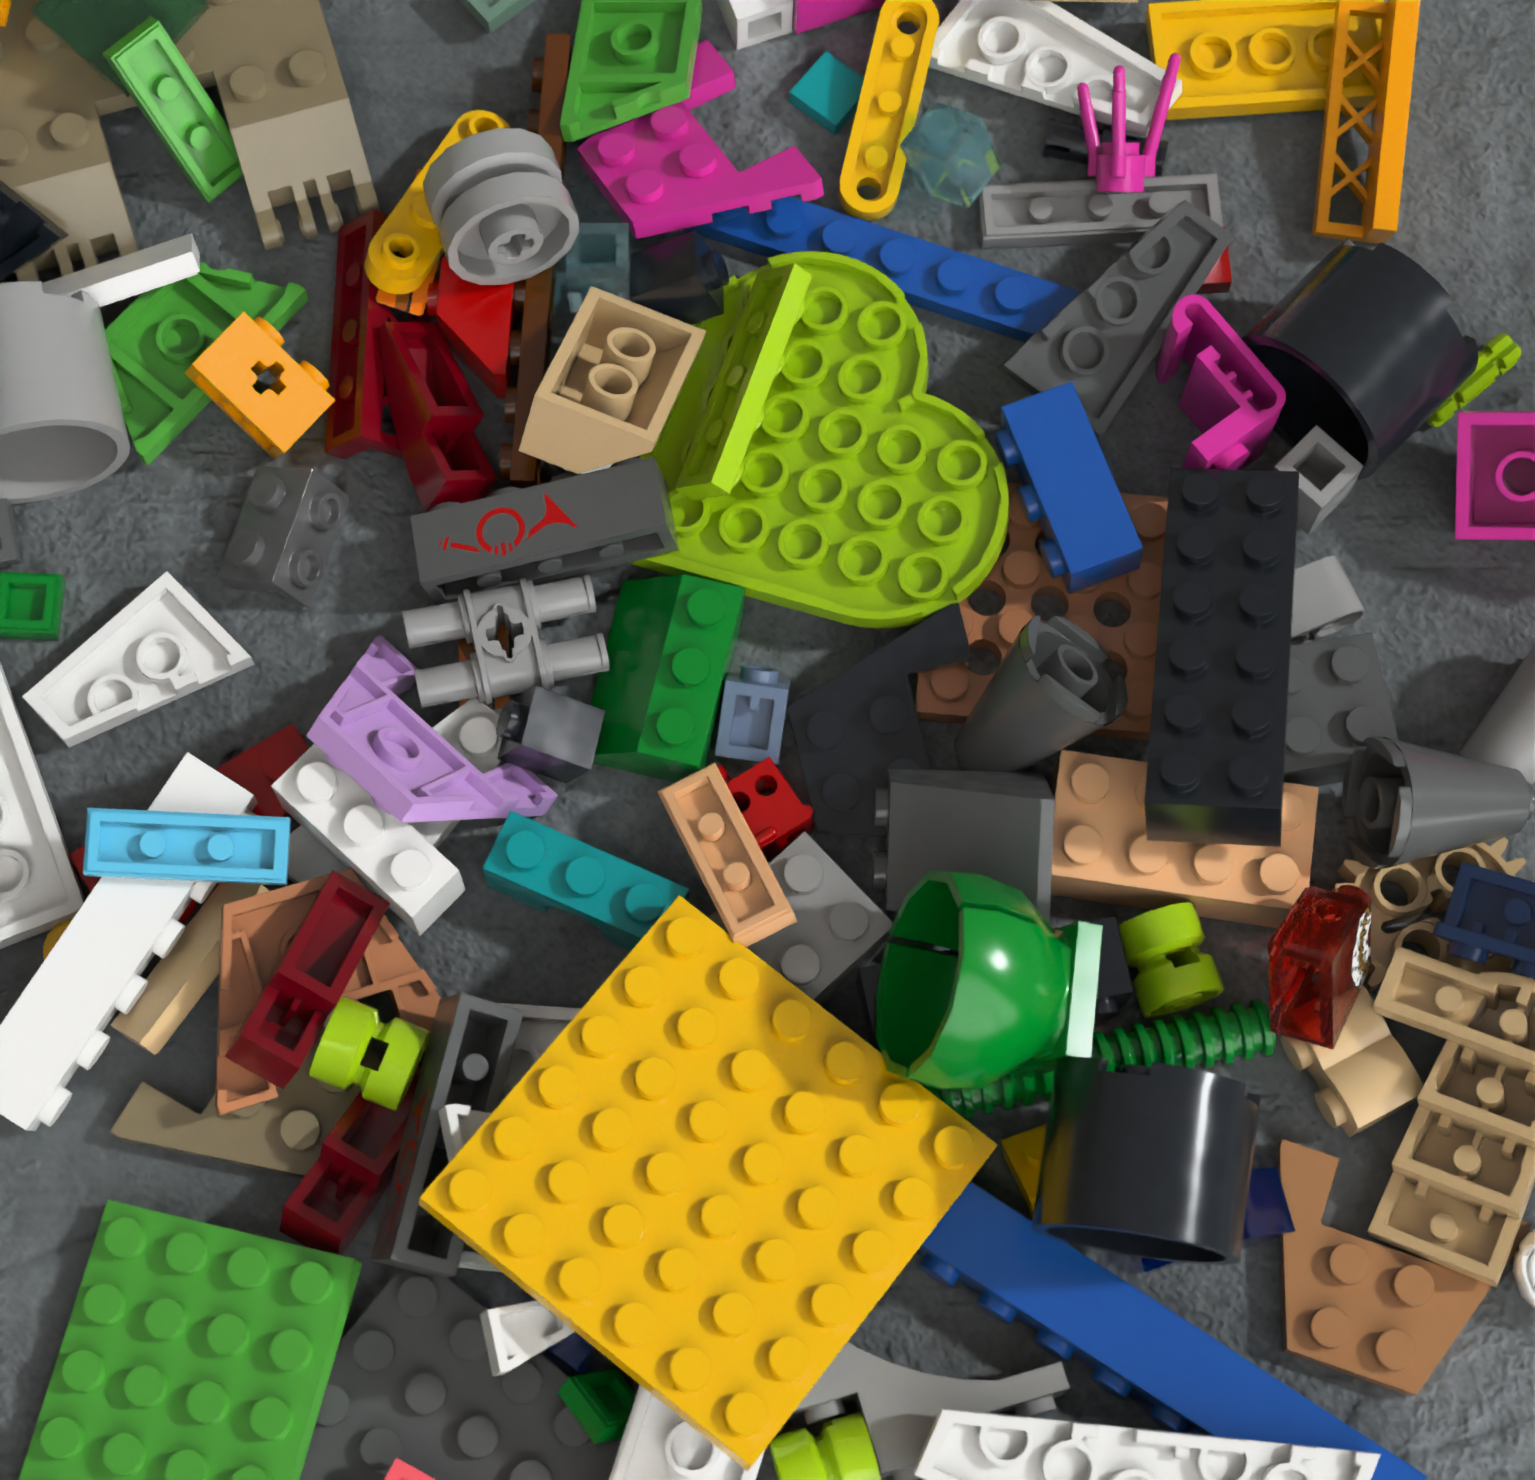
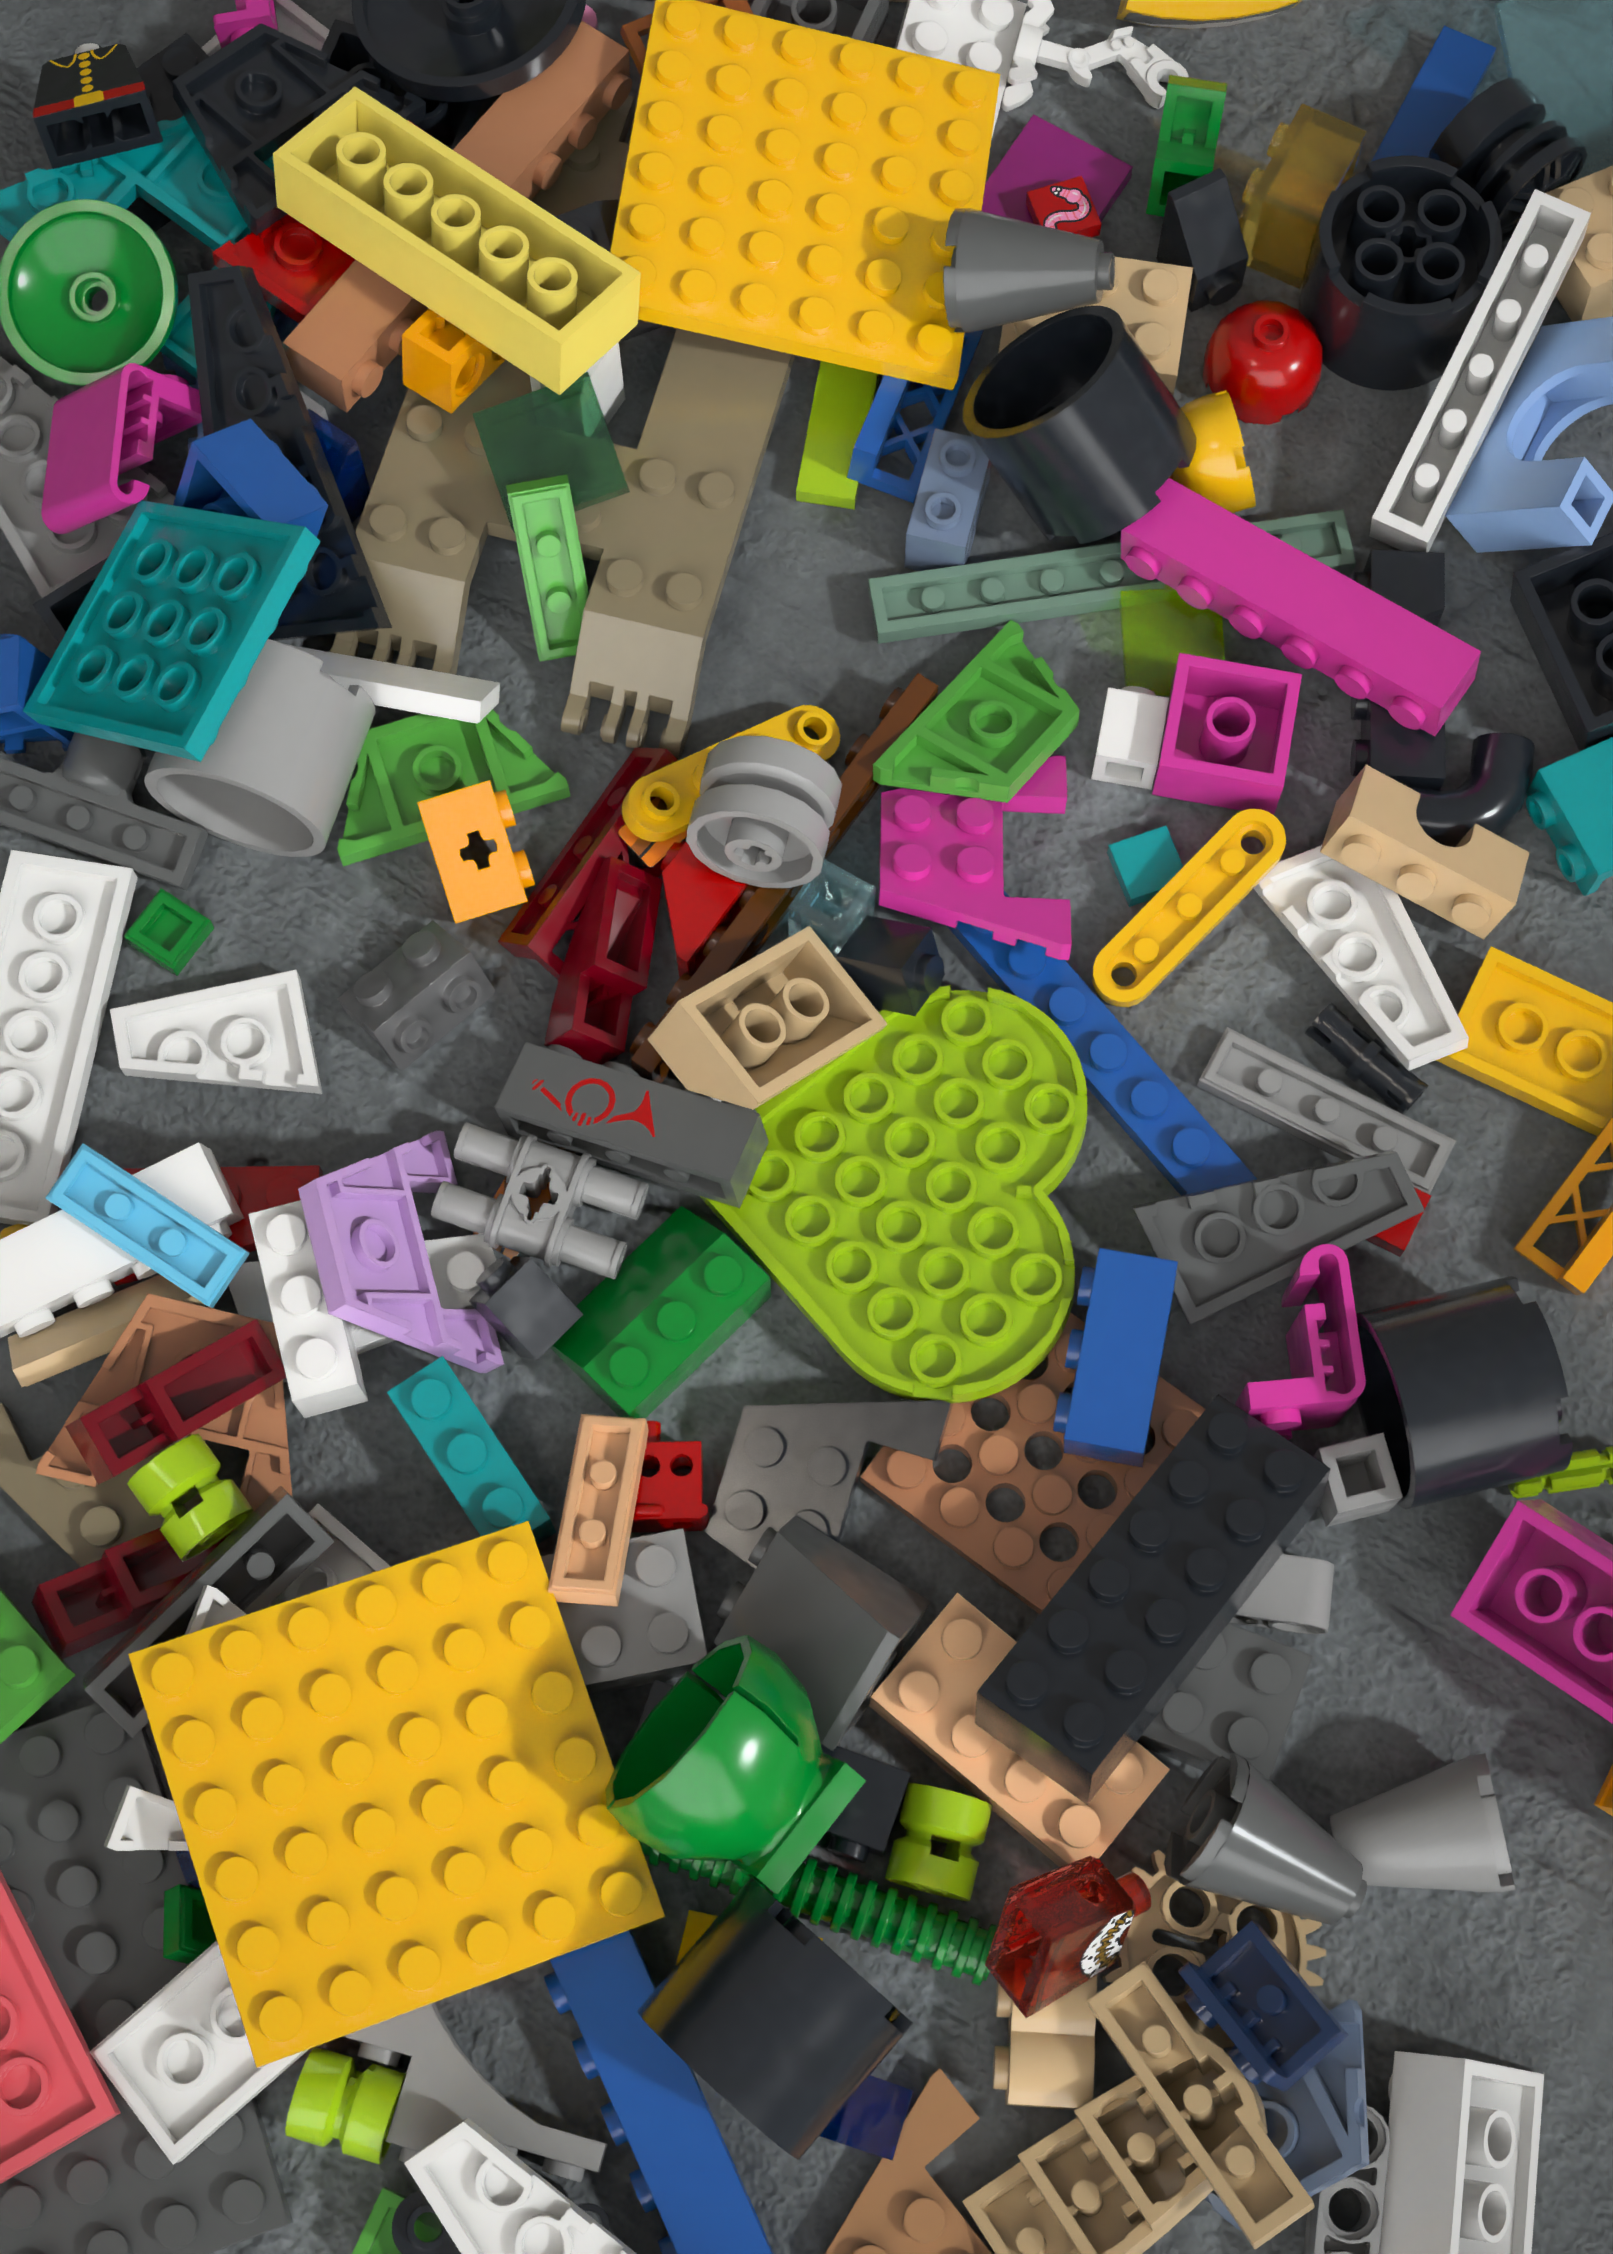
camera: 35 degrees right, 0 degrees up
(744, 382) = (902, 1079): lime plate -> none
(753, 714) = (715, 1392): sand blue bracket -> none
(951, 154) = (1214, 985): clear light blue brick -> none
(1040, 699) = (968, 1535): dark grey cone -> none
(1120, 165) = (1361, 1081): dark pink plant -> none

